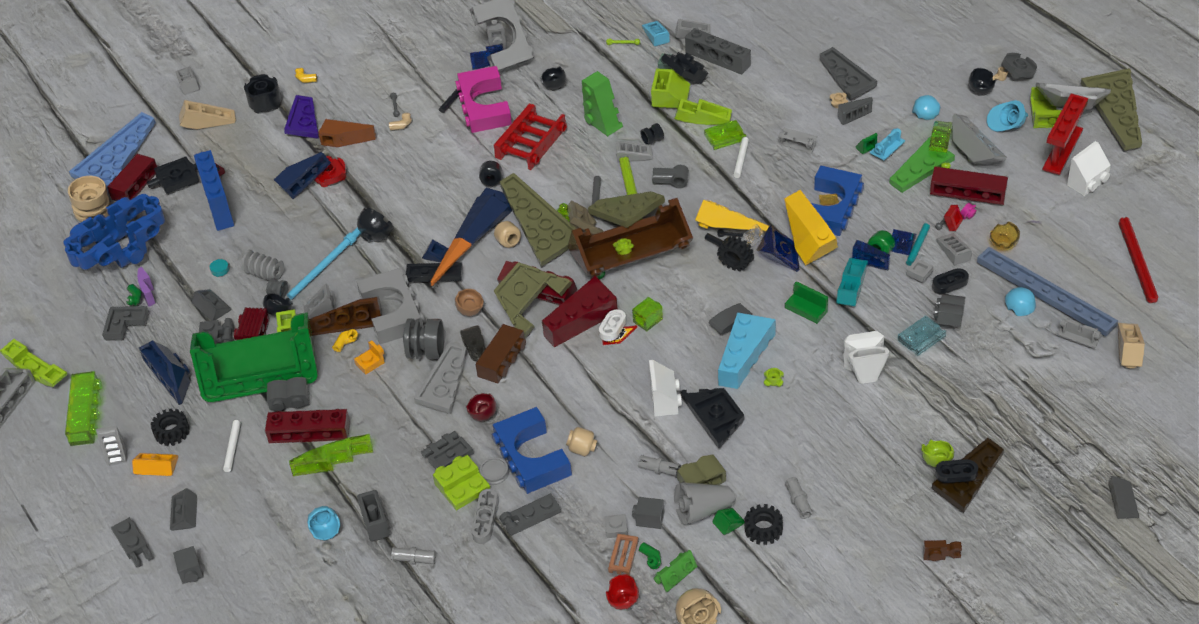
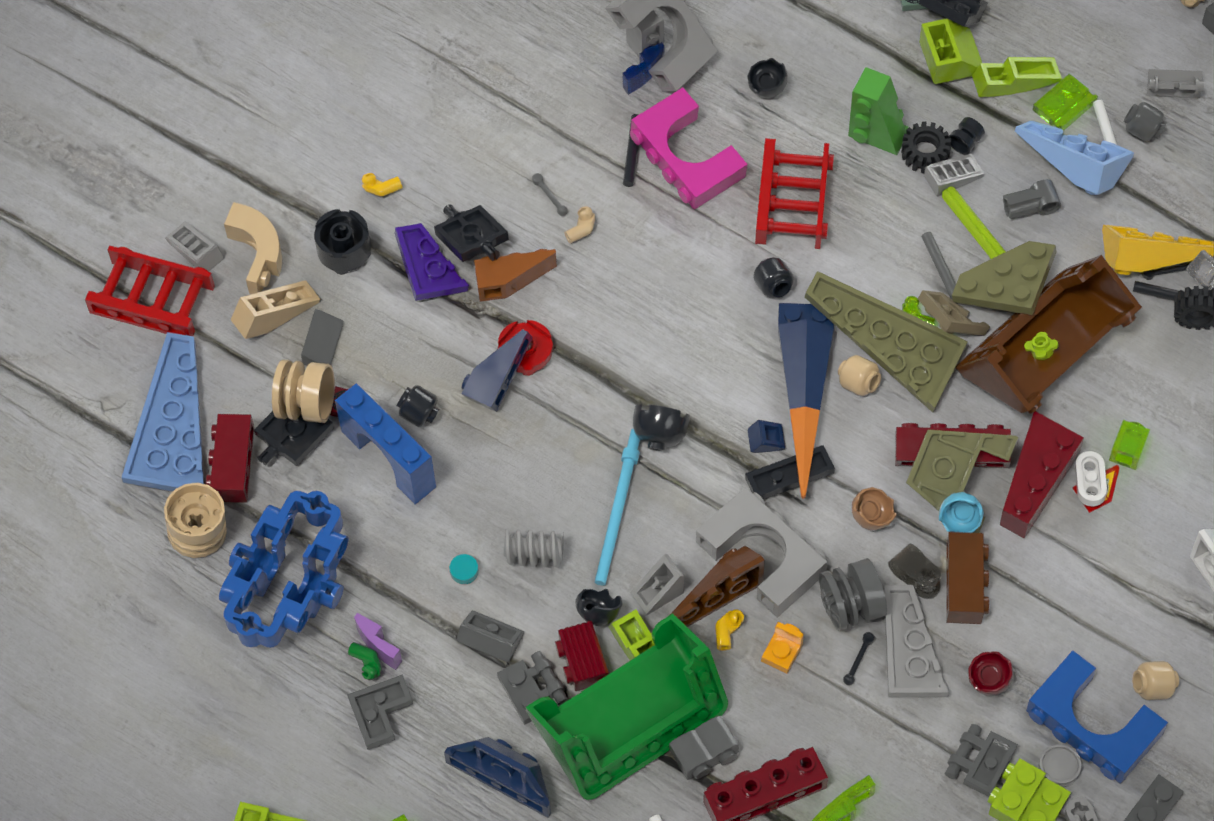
camera: 25 degrees left, 15 degrees up
(143, 104) = (154, 316): none -> red fence
(180, 147) = (303, 391): none -> tan wheel
(220, 138) = (321, 338): none -> dark grey slope
(222, 87) = (256, 230): none -> tan arch
(248, 181) = (418, 405): none -> black head
(277, 287) = (578, 577): dark grey wheel -> none
(335, 108) = (471, 233): none -> black plate
(424, 370) = (868, 639): none -> black hinge
(514, 313) = (961, 513): none -> medium azure hair
(624, 127) = (925, 134): none -> black tyre
(712, 162) = (1082, 162): none -> light blue wedge
(765, 153) = (1144, 121): none -> dark grey head

